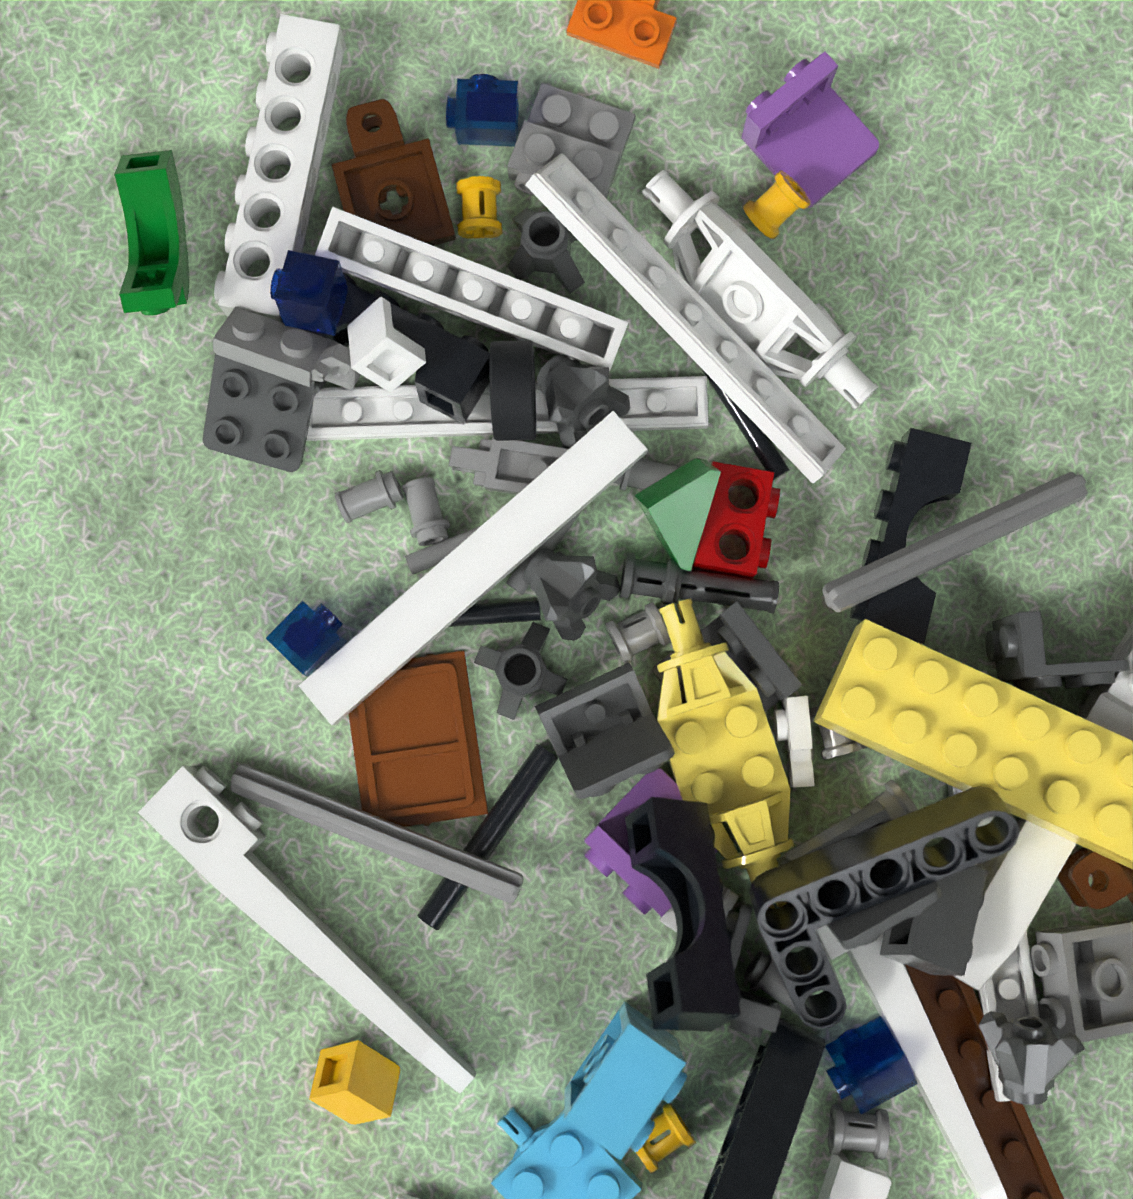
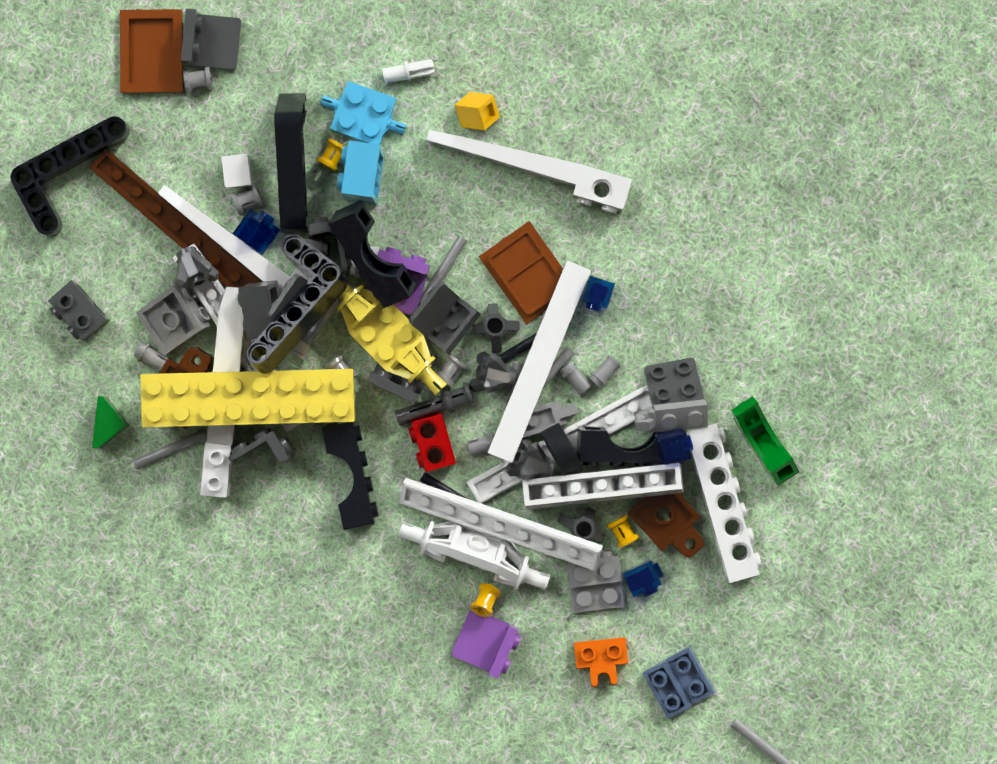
camera: 150 degrees right, 5 degrees up
(377, 833) = (523, 223): light grey axle -> none
(381, 350) = (630, 436): white panel -> none
(491, 831) = (473, 246): black piece -> none
(558, 824) = (445, 265): none -> light grey bar
(679, 508) = (460, 435): slope -> none
(794, 728) = (360, 361): white plate -> none
(953, 542) = (329, 481): light grey axle -> none

